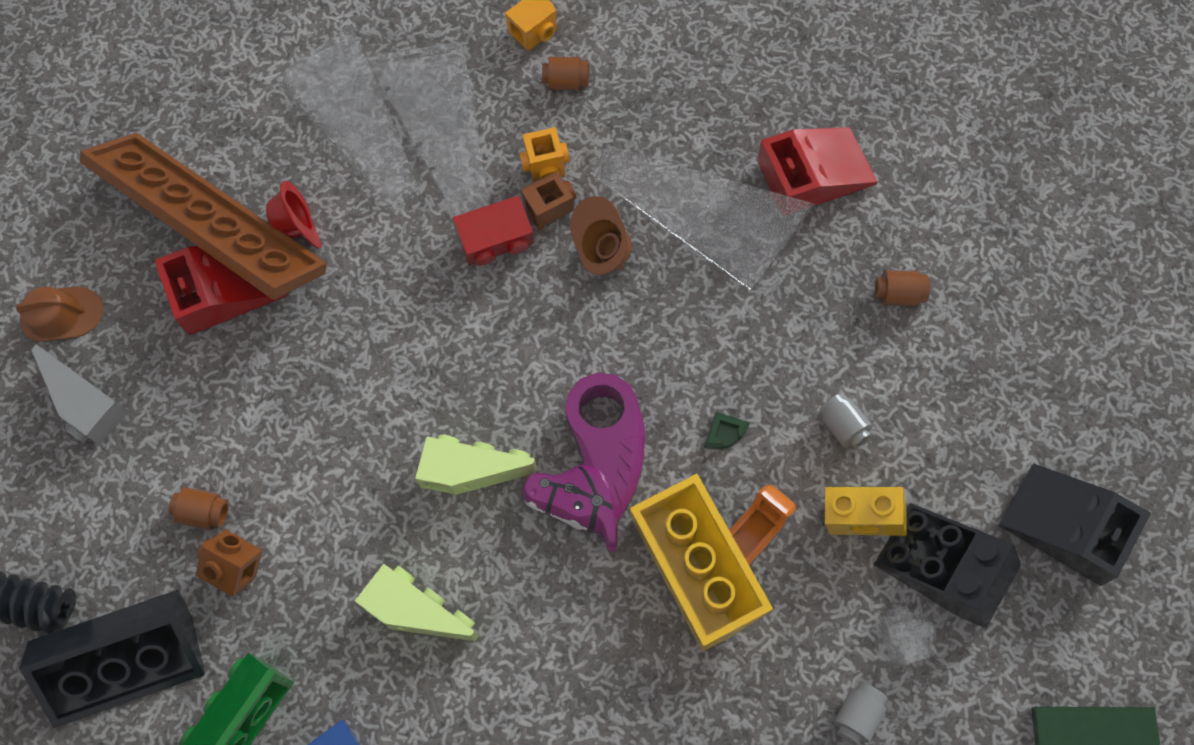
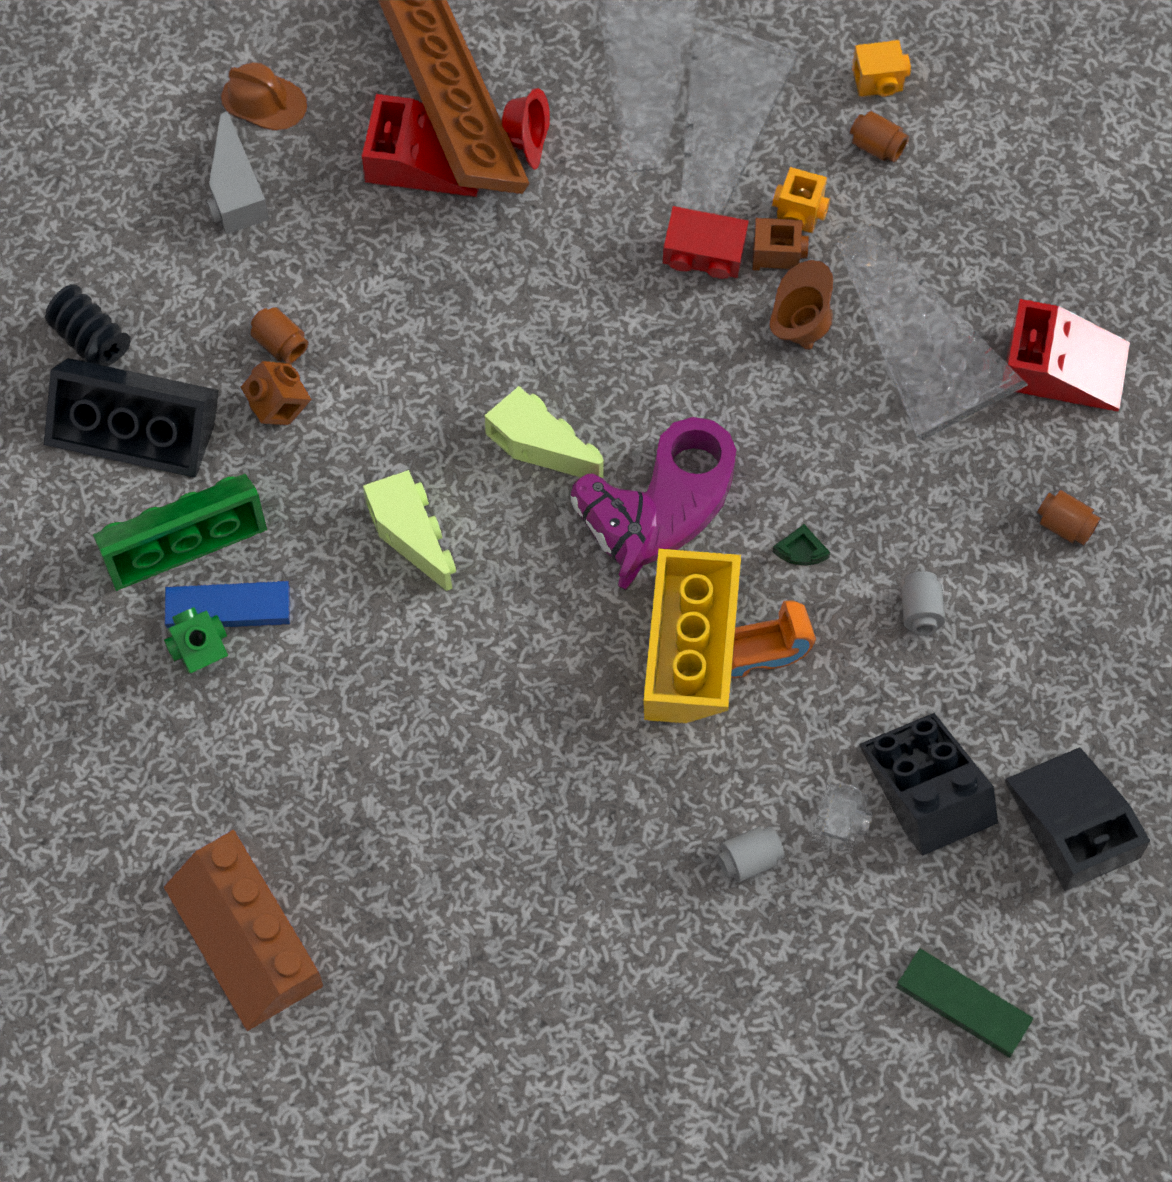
camera: 30 degrees right, 5 degrees down
(865, 511) = (880, 686): yellow brick -> none

